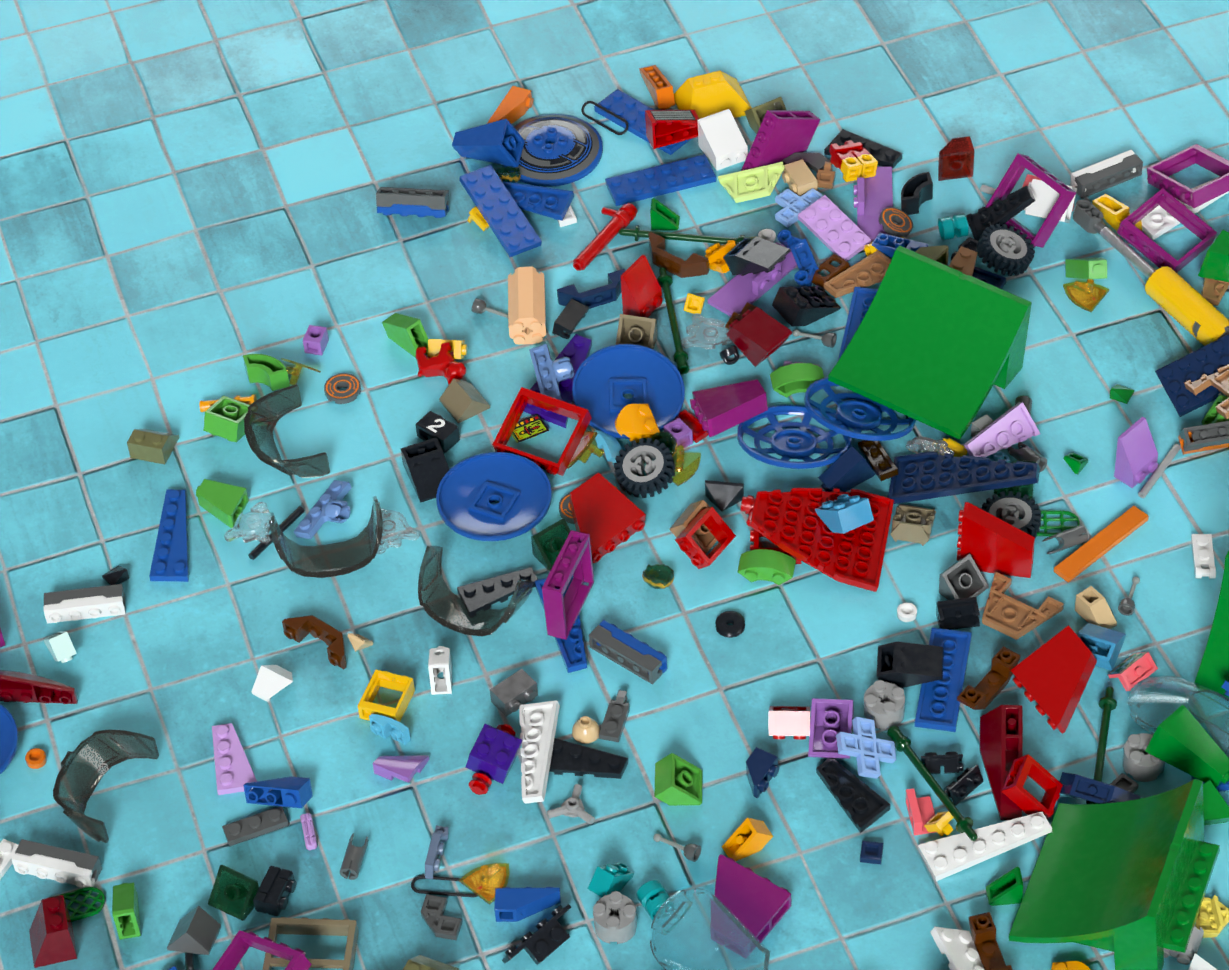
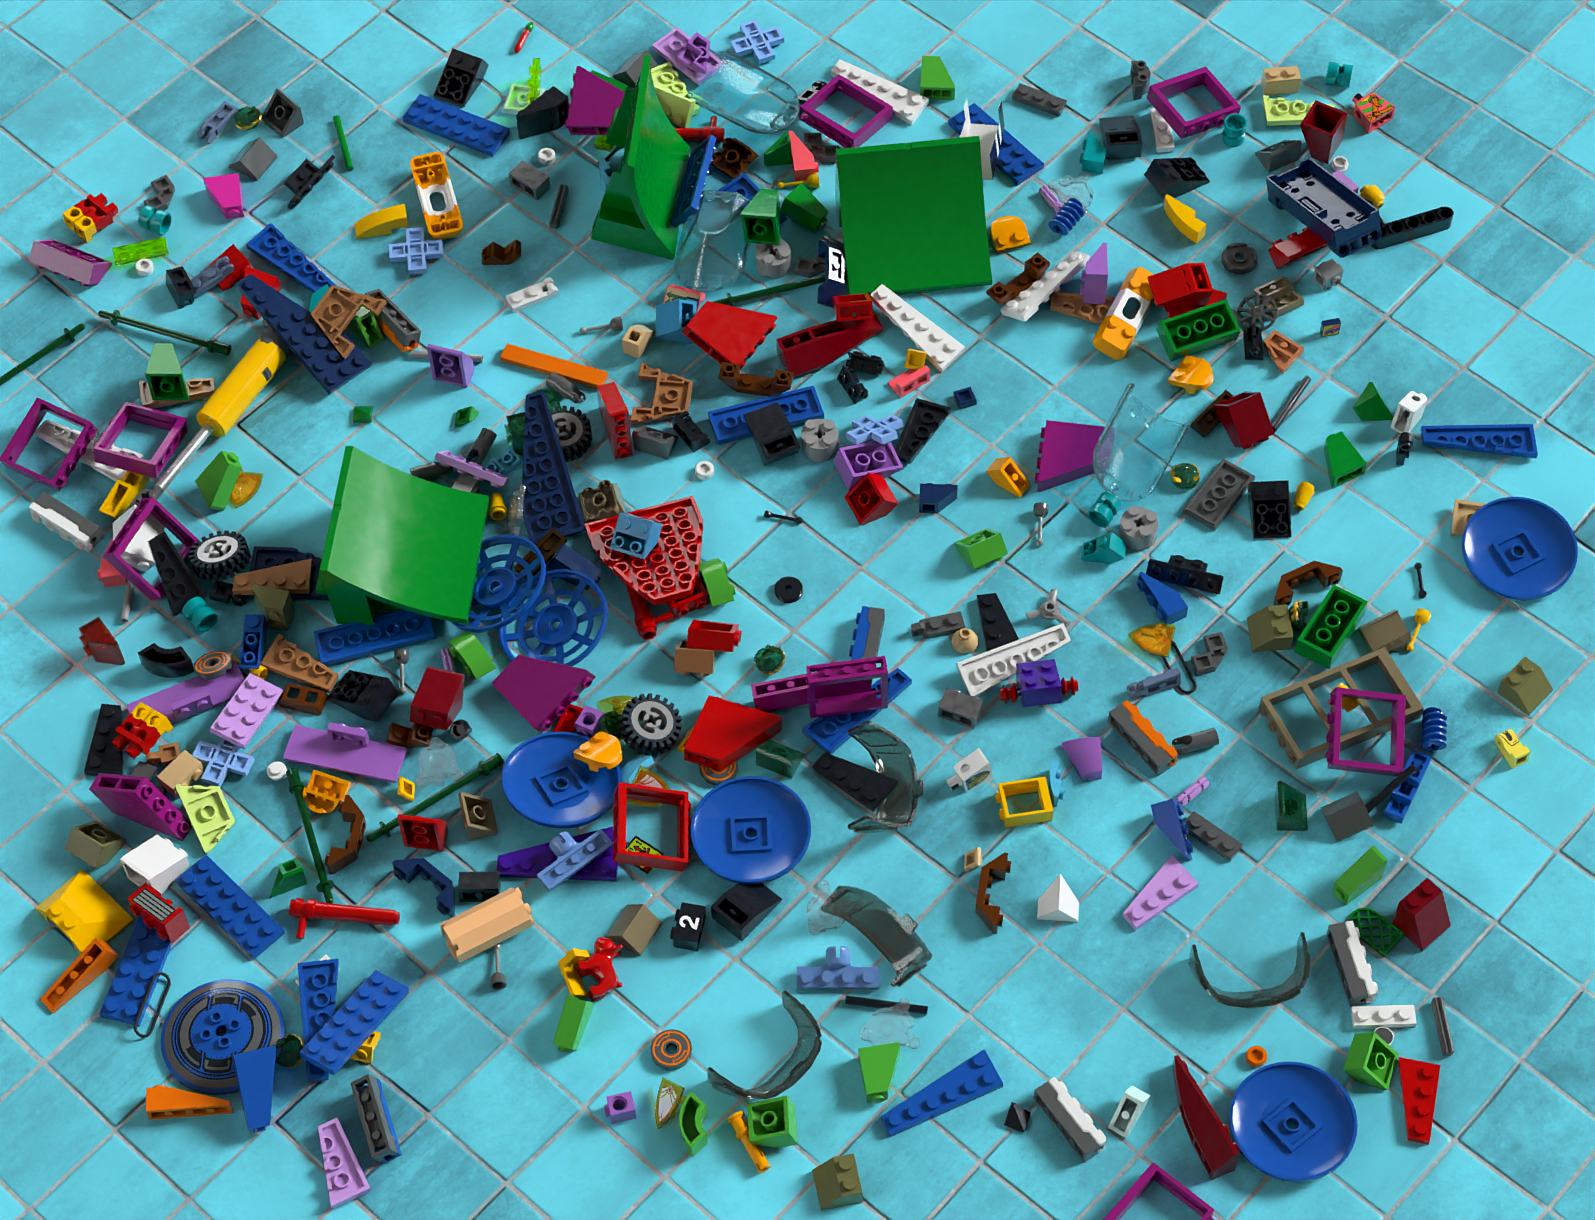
camera: 120 degrees left, 10 degrees up
(274, 891) = (1263, 780): black brick -> none
(382, 177) = (342, 1169): none -> lavender wing
(387, 815) = (1143, 737): none -> dark grey piece
(602, 585) = (793, 691): none -> magenta brick
(724, 493) = (645, 655): black slope -> none
(754, 256) = (332, 742): slope -> none
(802, 255) = (304, 716): blue plate -> none
(804, 660) = (768, 514): none -> black hinge
(903, 744) = (851, 413): dark green bar -> none
(1006, 889) = (945, 299): green slope -> none

